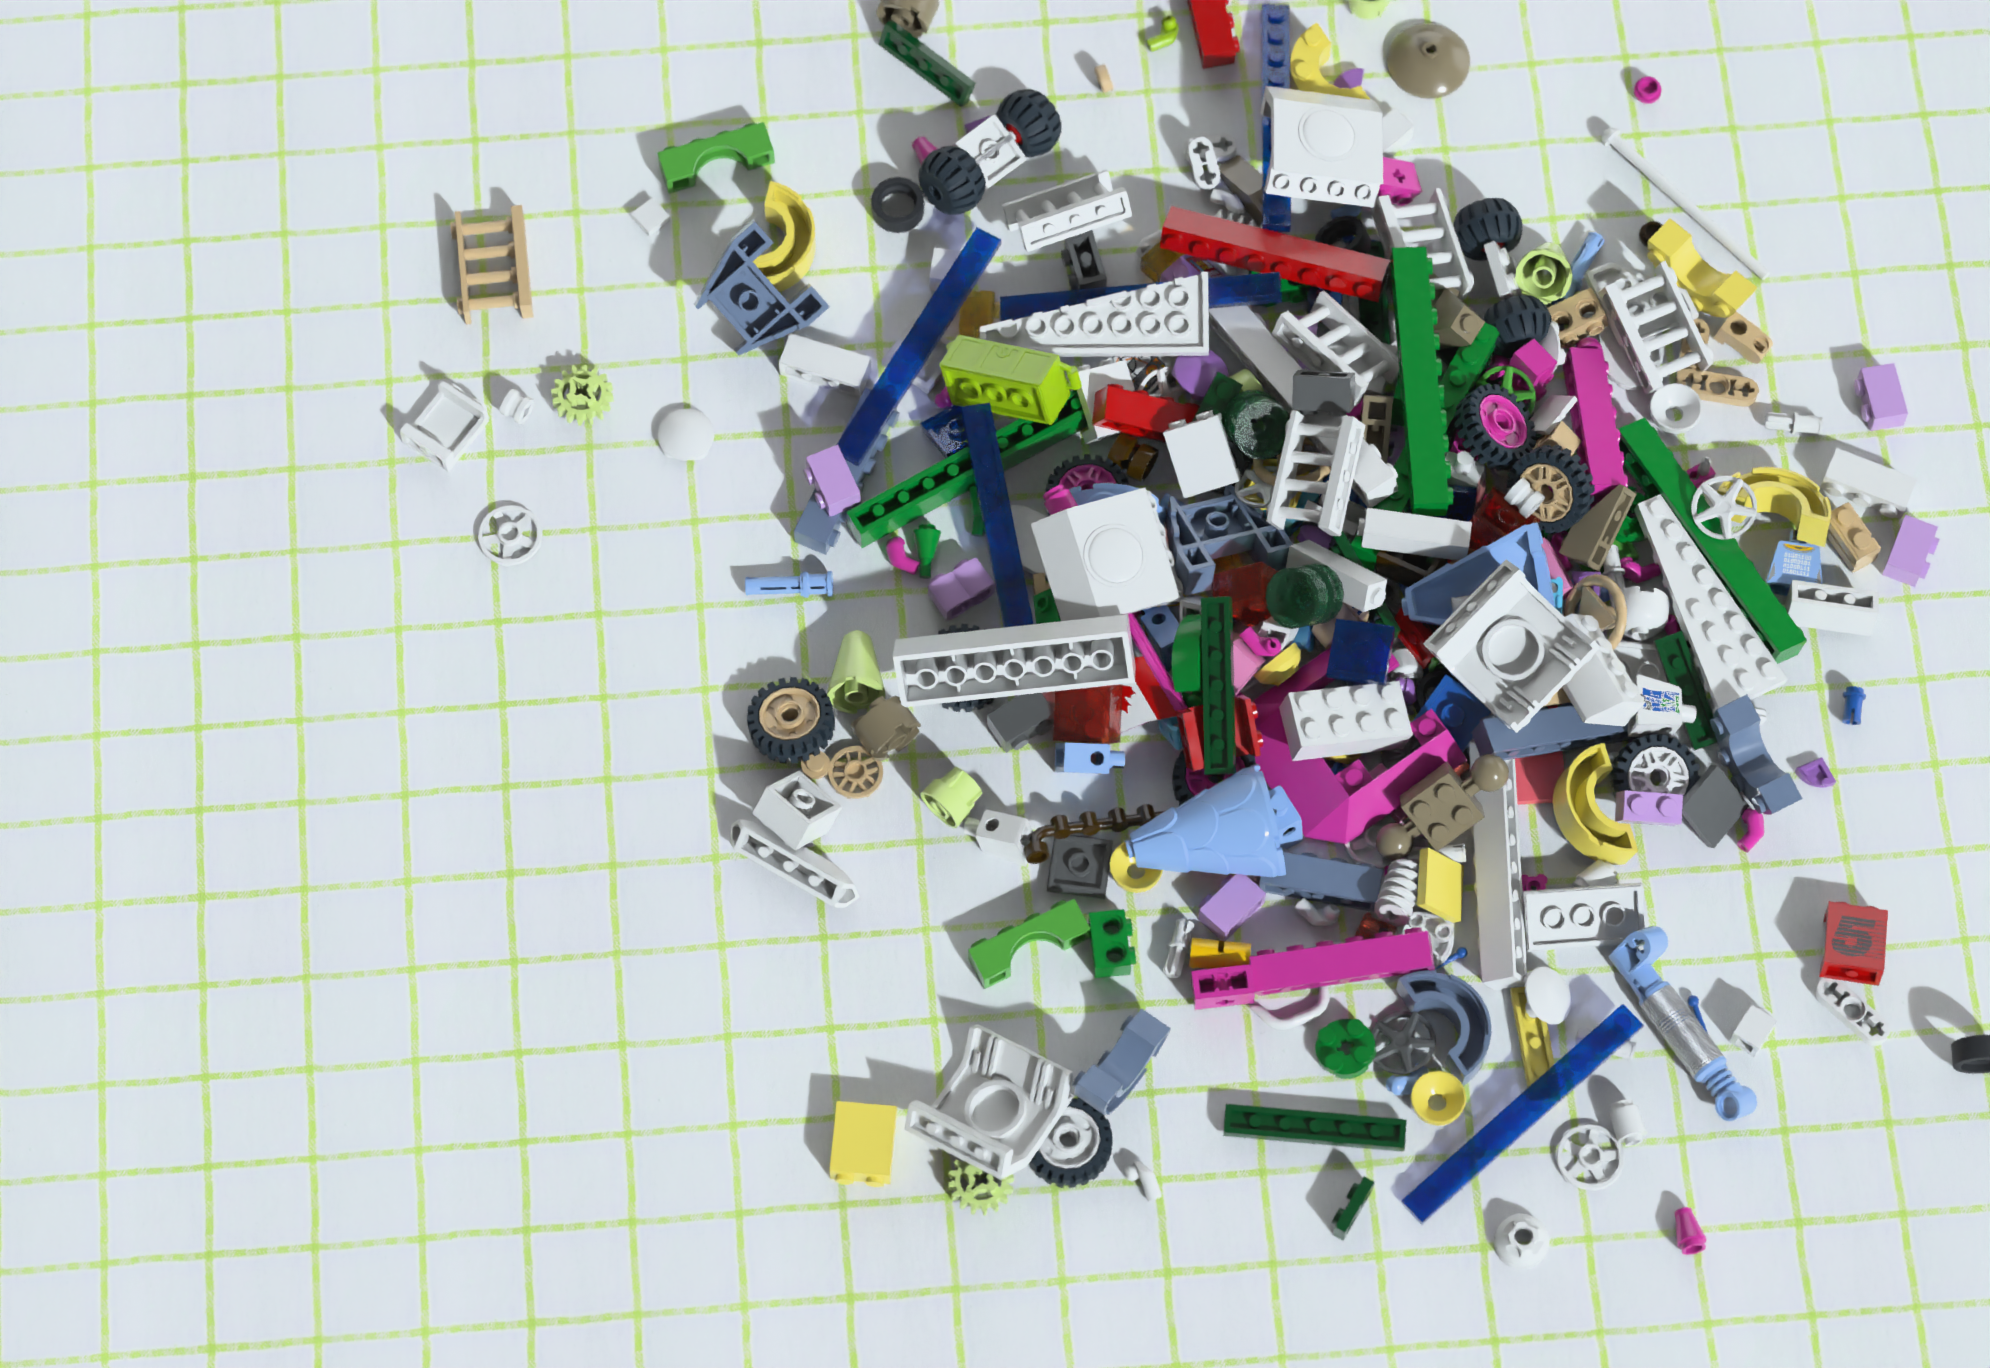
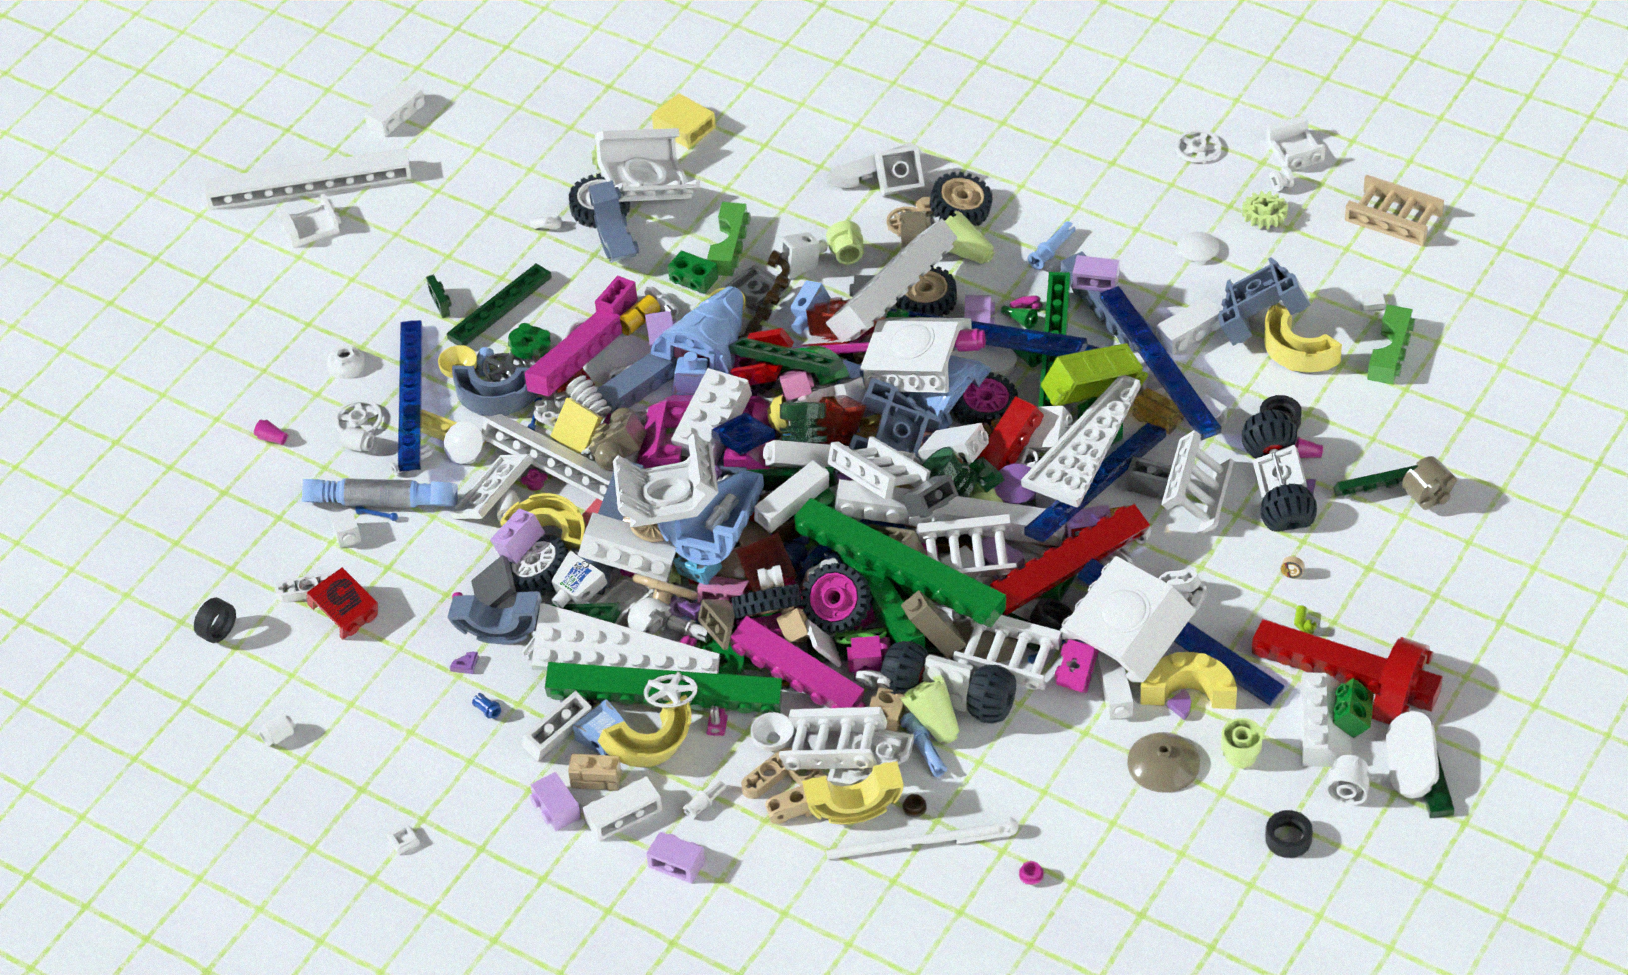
camera: 130 degrees right, 20 degrees down
(1260, 645) = (789, 395): dark pink arm -> none

